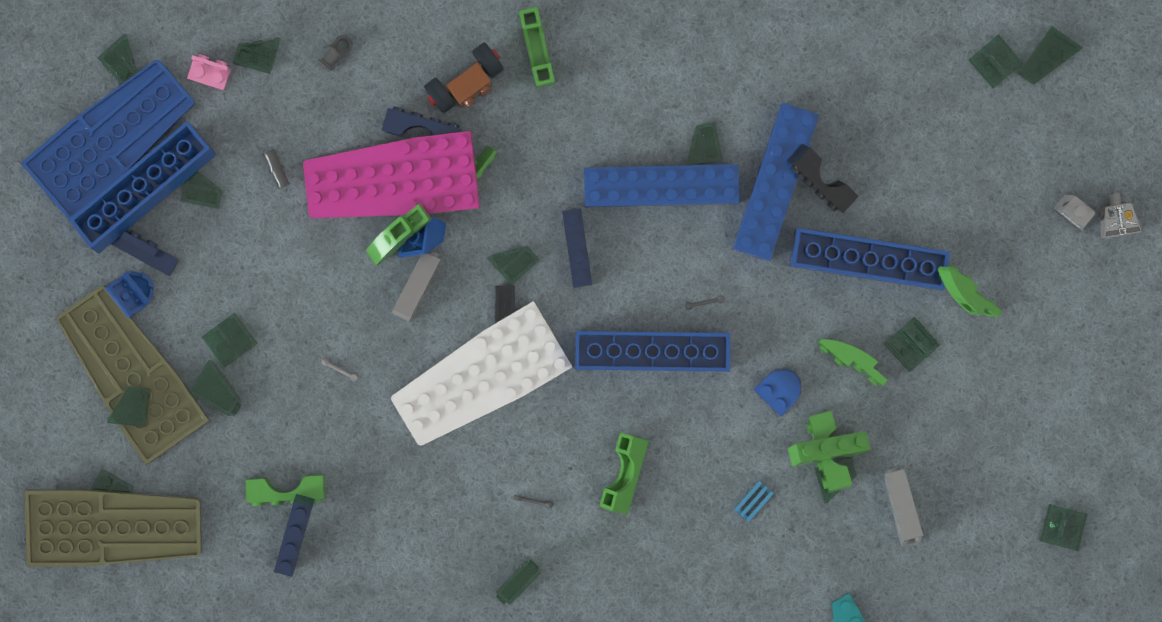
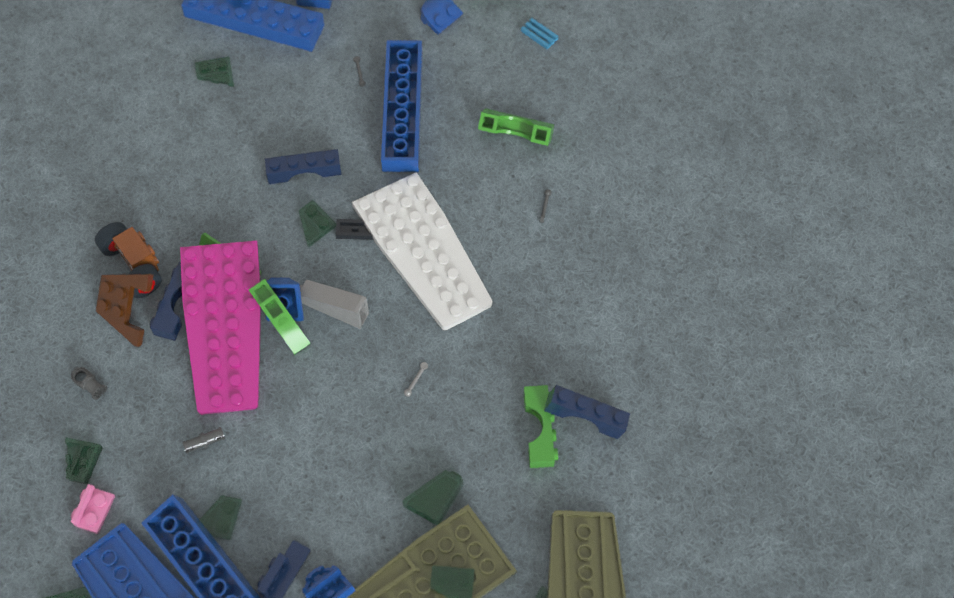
camera: 90 degrees left, 25 degrees down
(229, 340) = (382, 485): clear green slope -> none
(417, 71) = (116, 301): none -> reddish brown wing
(518, 581) = (621, 210): clear green slope -> none
(536, 47) = (85, 204): bright green arch -> none
(661, 185) = (249, 101): blue brick -> none

